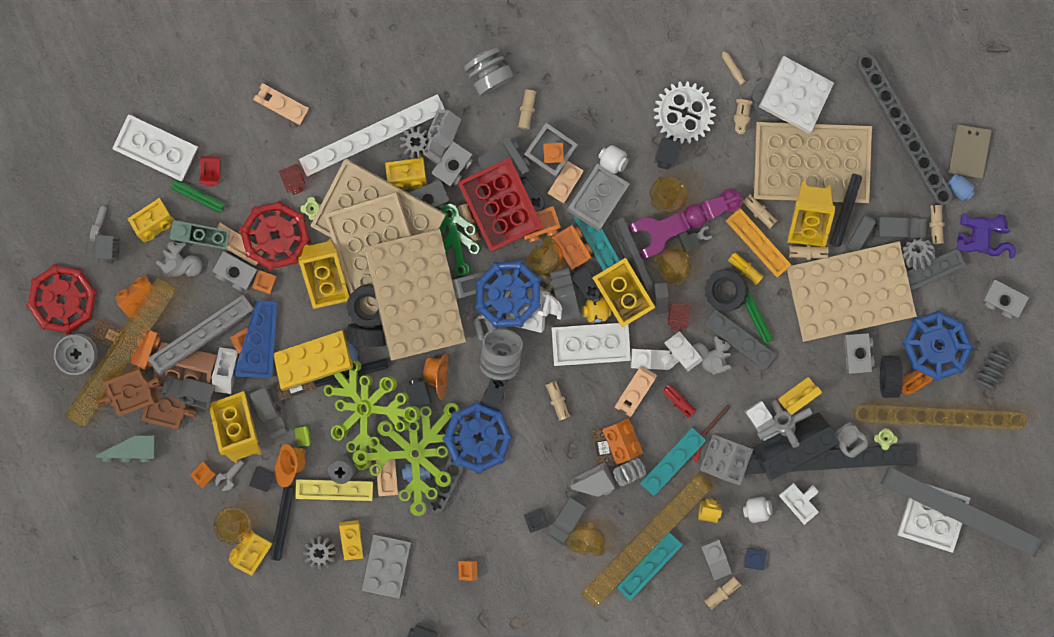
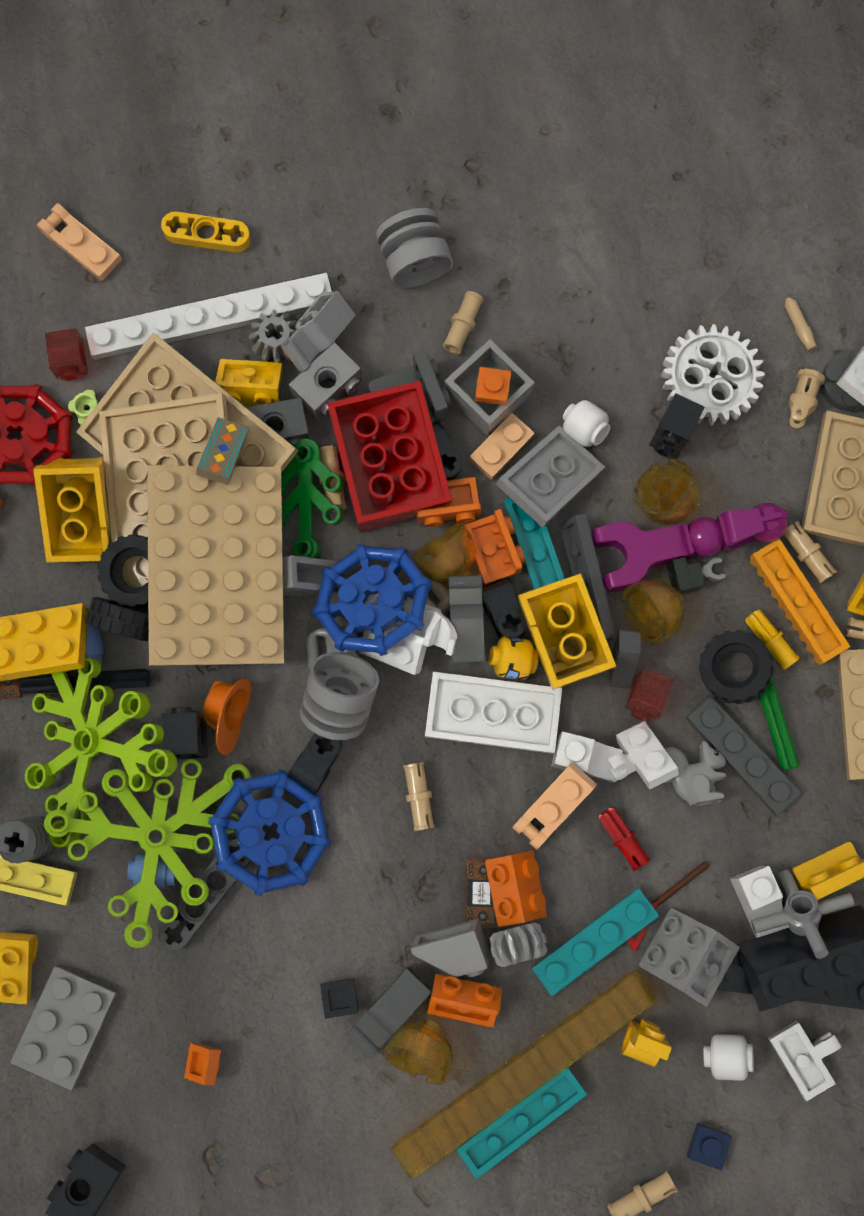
camera: 10 degrees right, 10 degrees down
(352, 75) = (182, 236): none -> yellow beam
(387, 479) = (102, 871): light nougat plate -> none
(405, 228) = (222, 451): none -> dark tan tile
(605, 508) = (464, 1000): none -> orange bracket
(716, 559) = (641, 1131): light grey slope -> none

